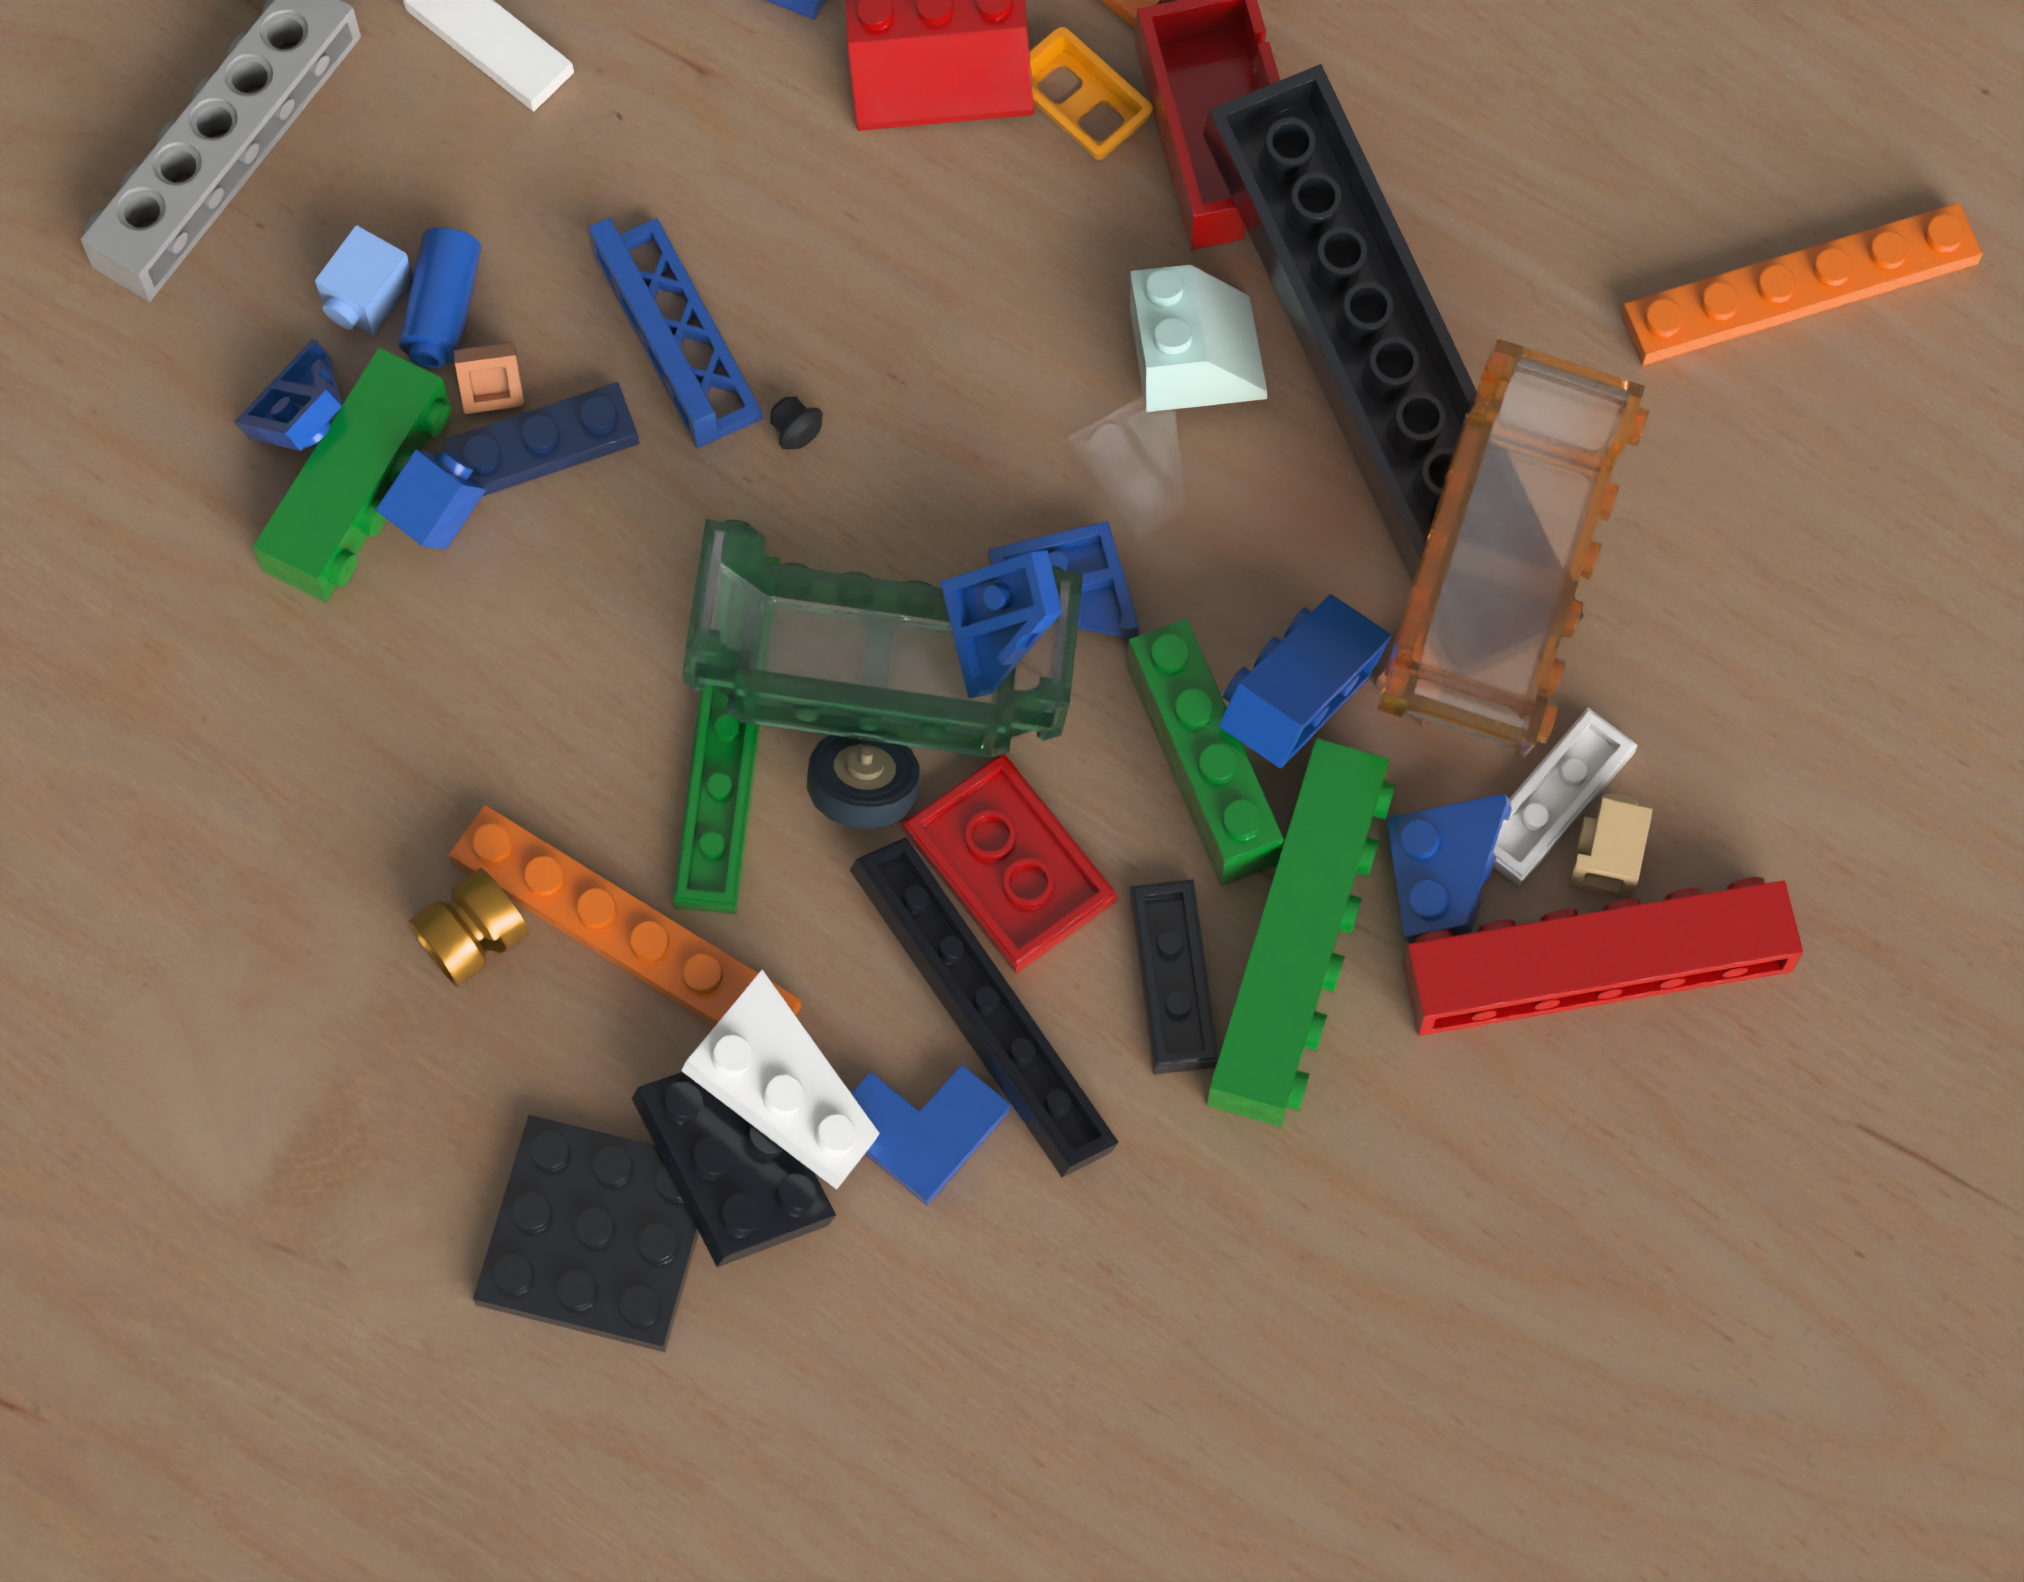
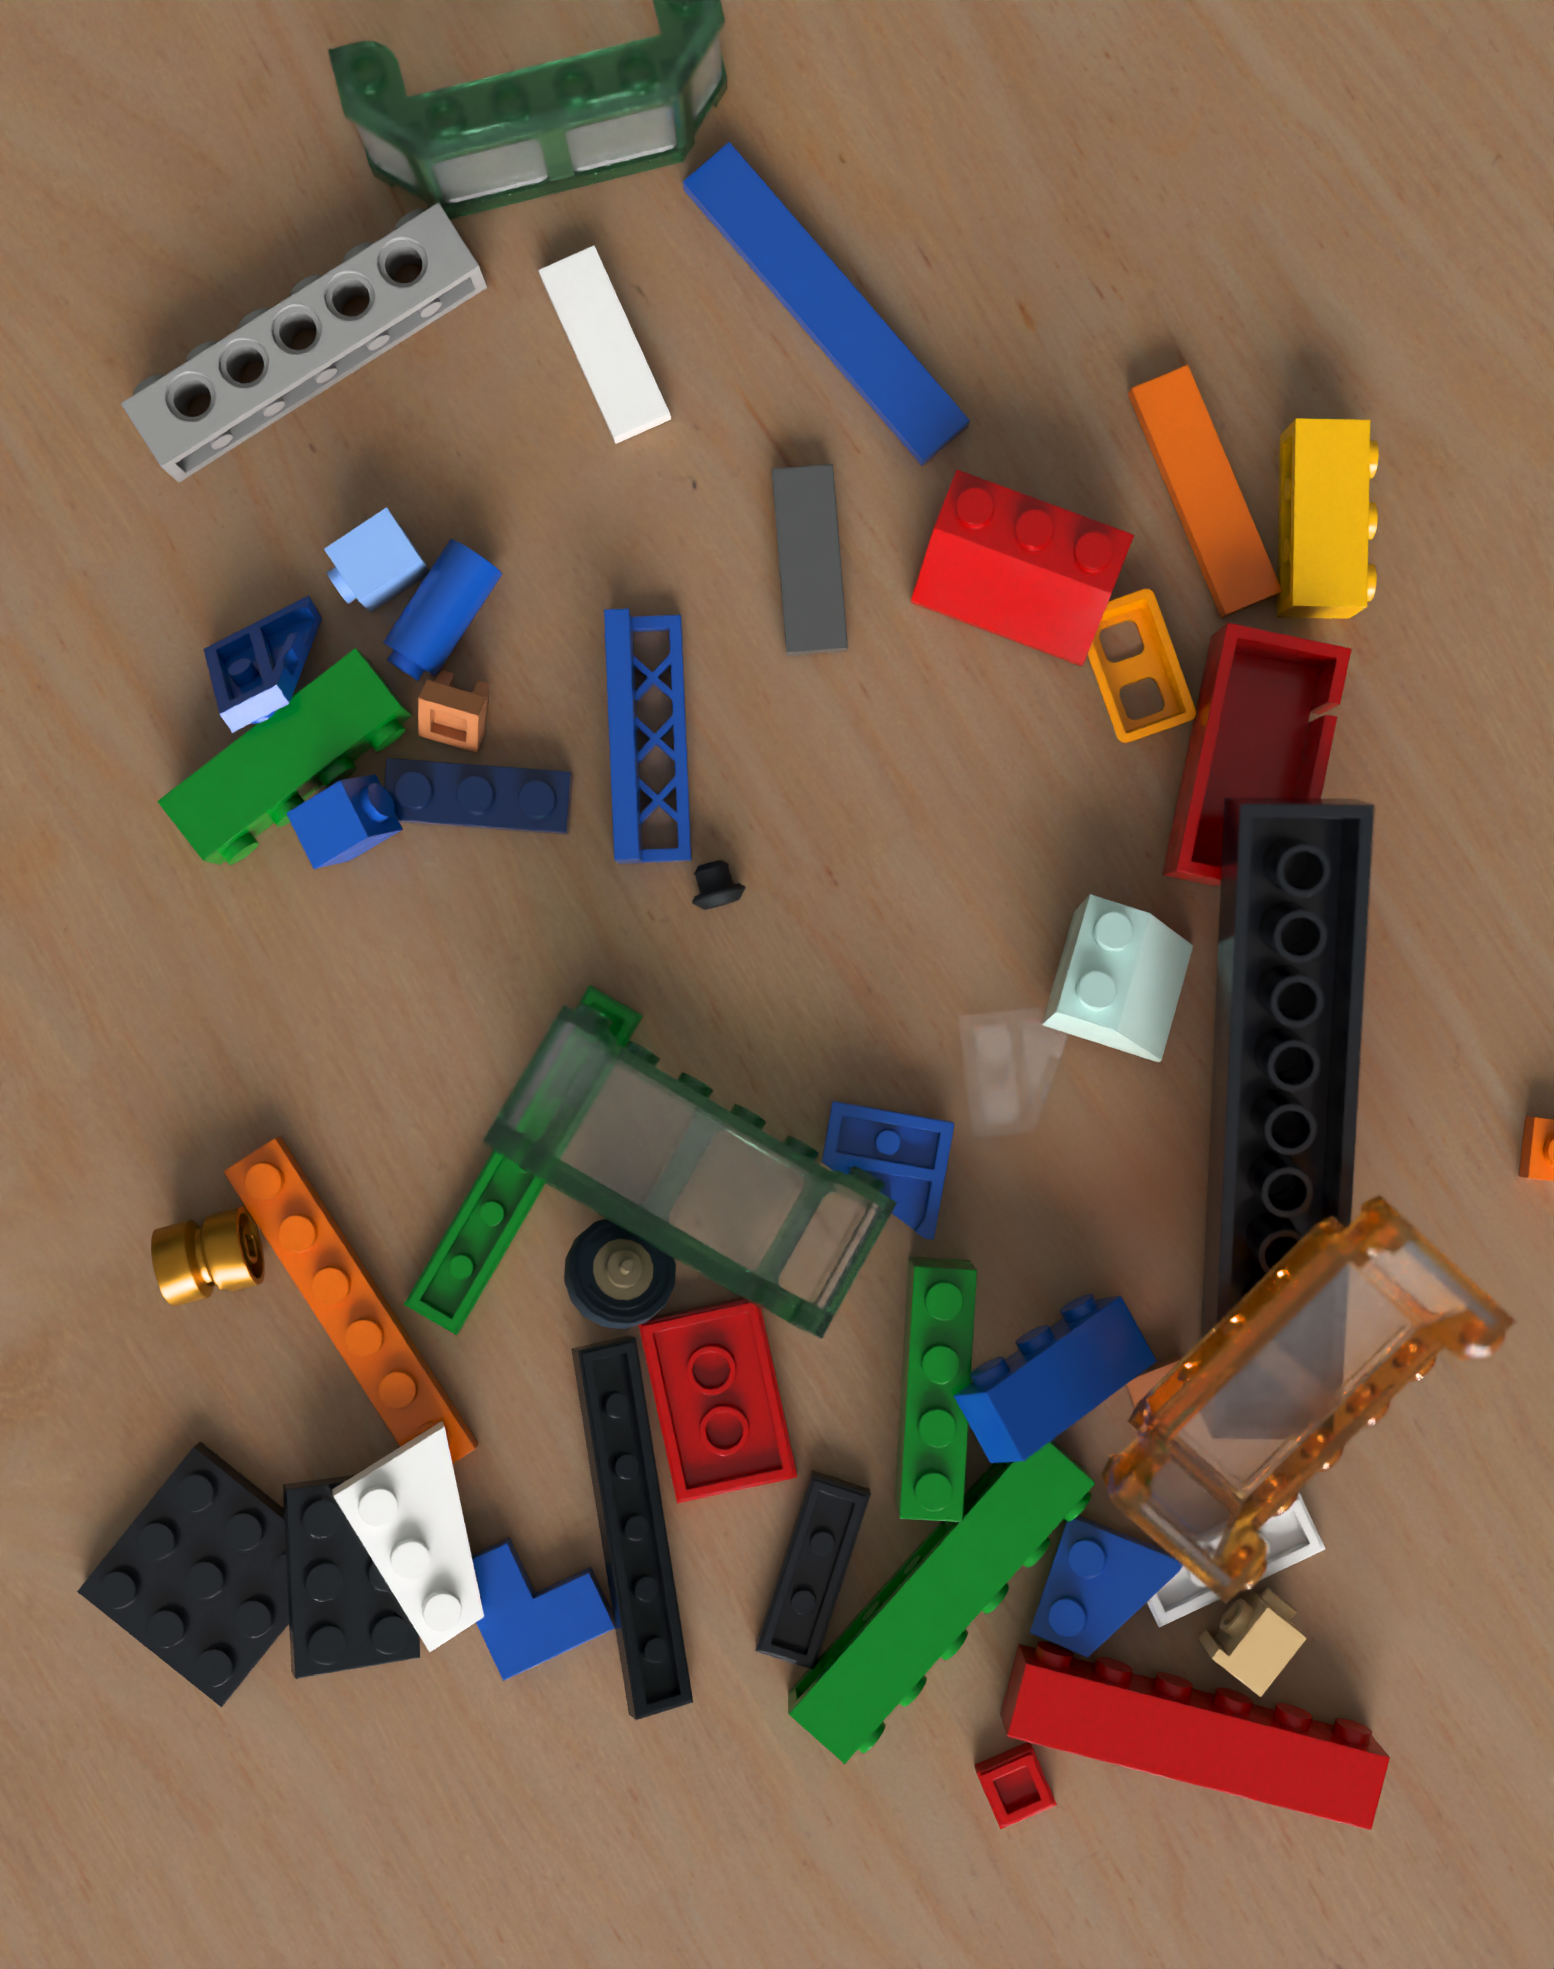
camera: 25 degrees right, 20 degrees up
(751, 130) = (809, 560): none -> dark grey tile
(1000, 616) = (804, 1201): blue wing -> none
(1464, 1088) = (1015, 1785): none -> red tile

